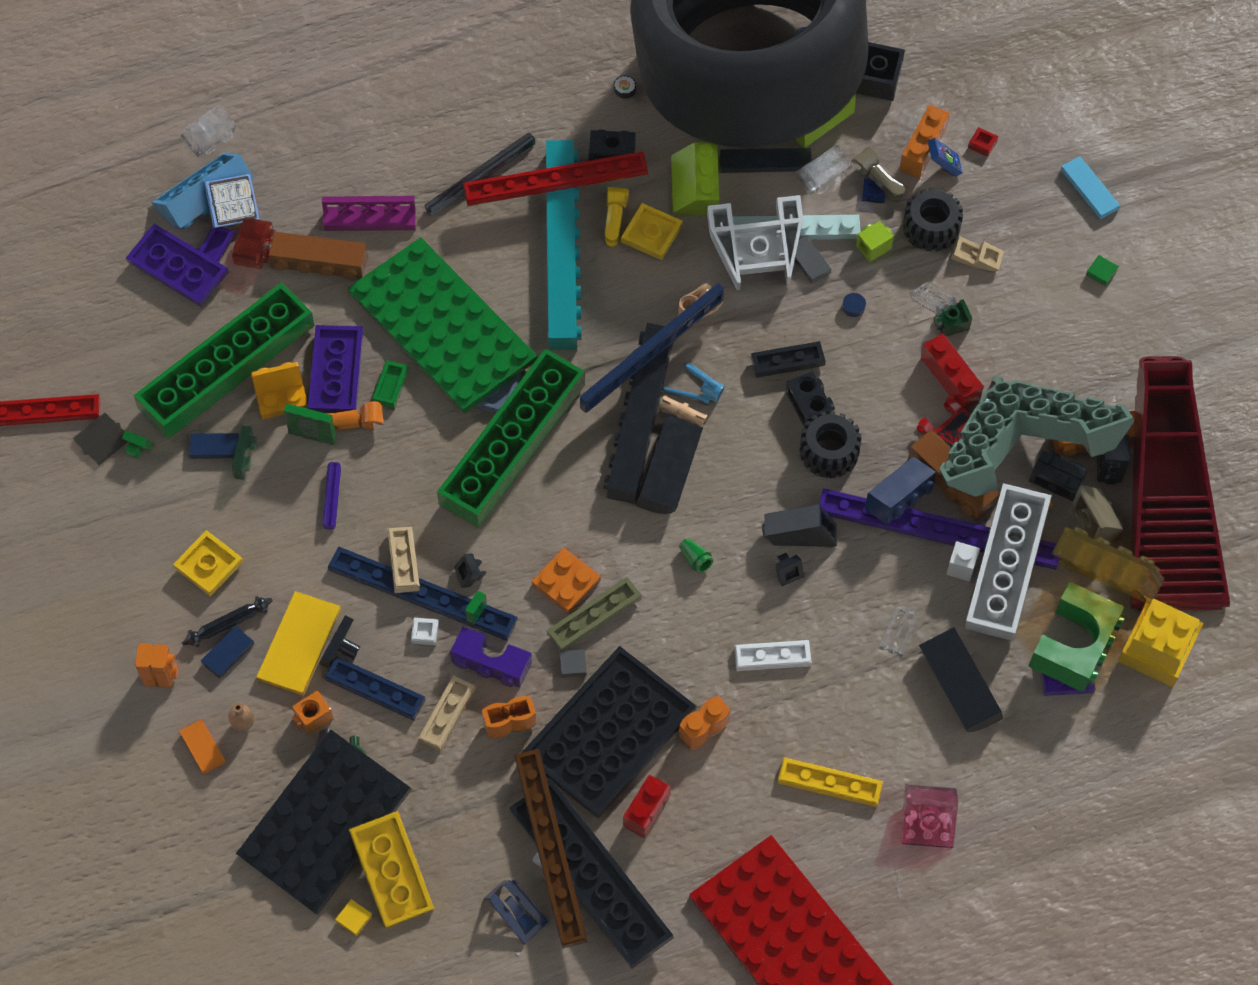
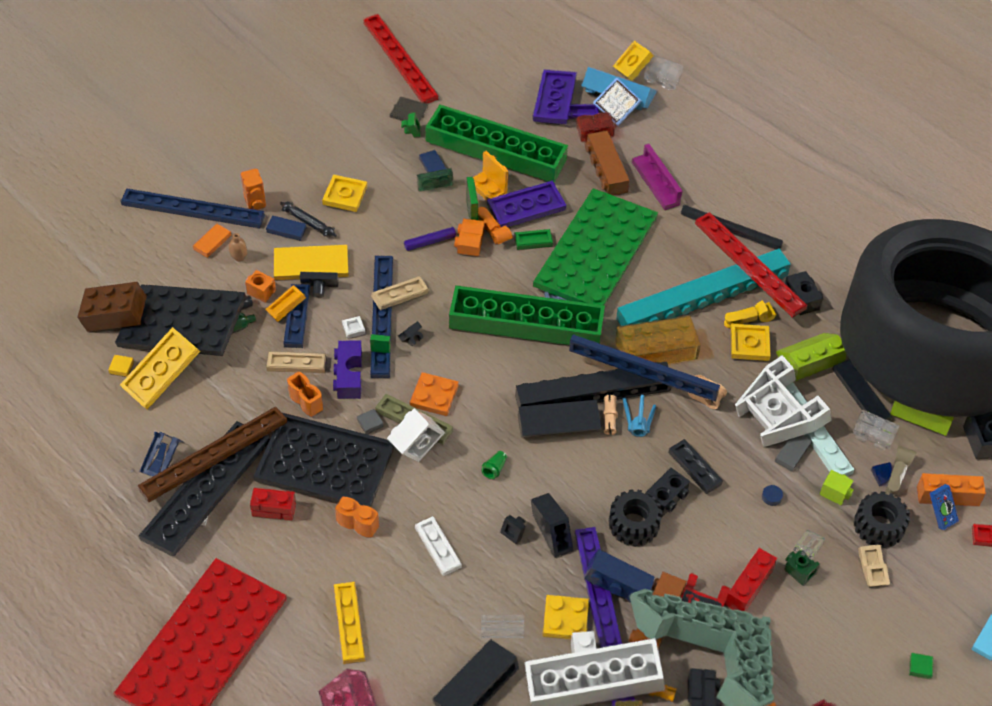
camera: 65 degrees right, 10 degrees down
(132, 754) = (193, 208): none -> dark blue tile
(175, 153) = (633, 60): none -> yellow plate
(266, 896) = (112, 306): none -> reddish brown brick
(355, 693) = (285, 303): none -> light orange tile
(356, 449) = (470, 237): none -> orange brick
(611, 320) = (660, 340): none -> clear yellow brick
(632, 616) = (415, 435): none -> white brick
(915, 565) = (564, 616): none -> yellow plate

